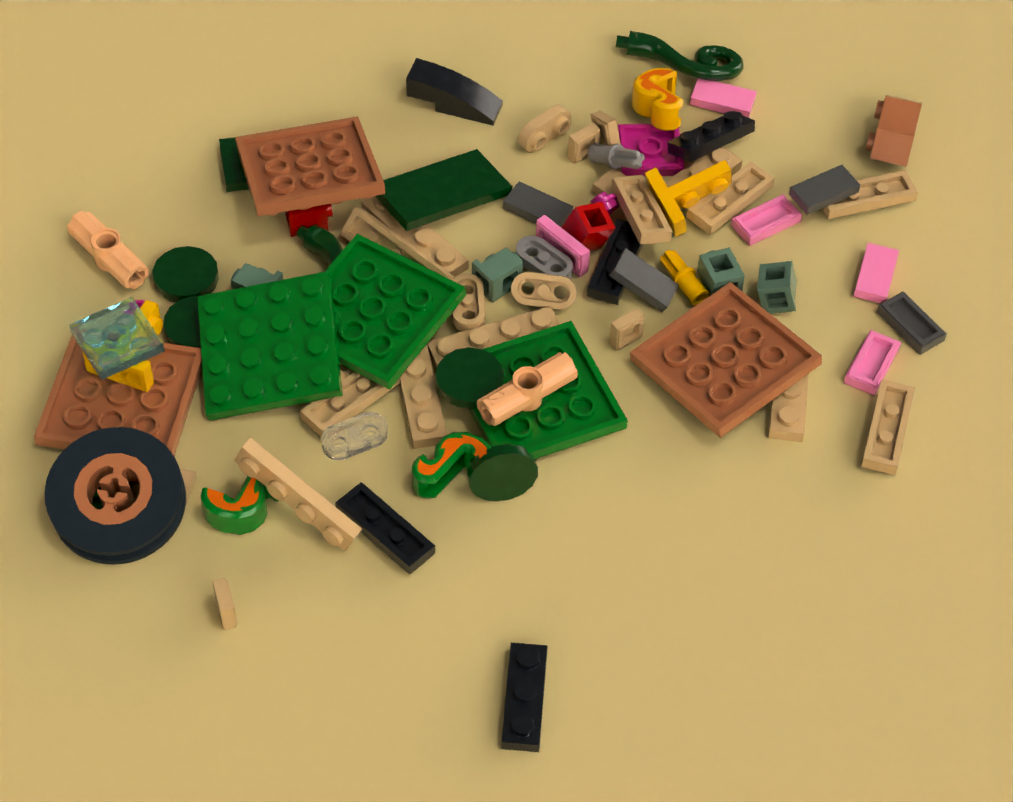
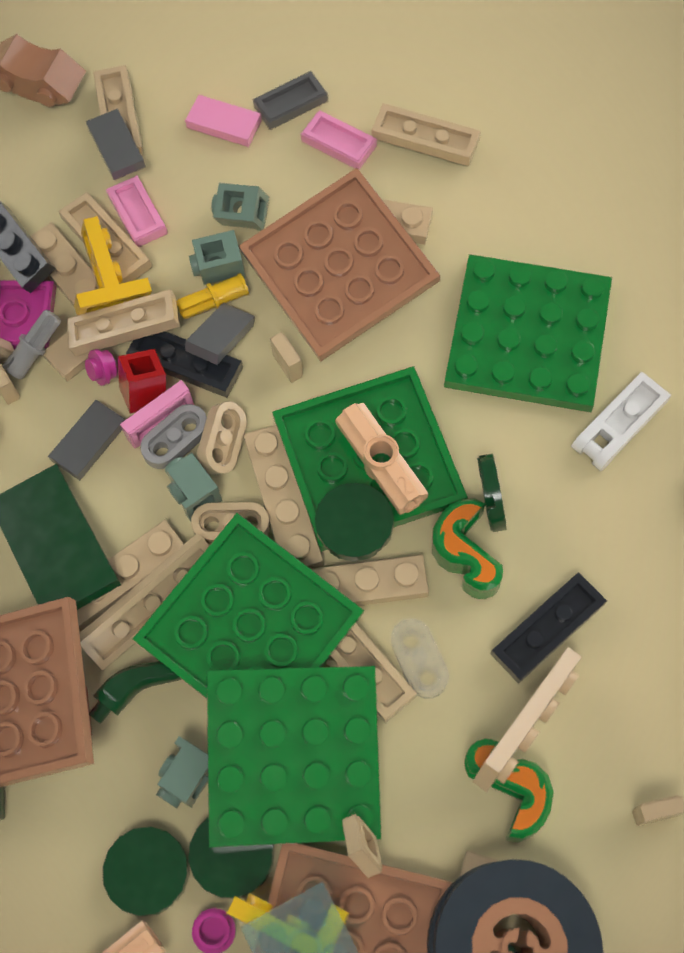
camera: 80 degrees left, 15 degrees up
(196, 389) = (362, 846): none -> tan tile
(592, 587) = (622, 420): none -> white plate
(681, 518) = (529, 333): none -> green plate

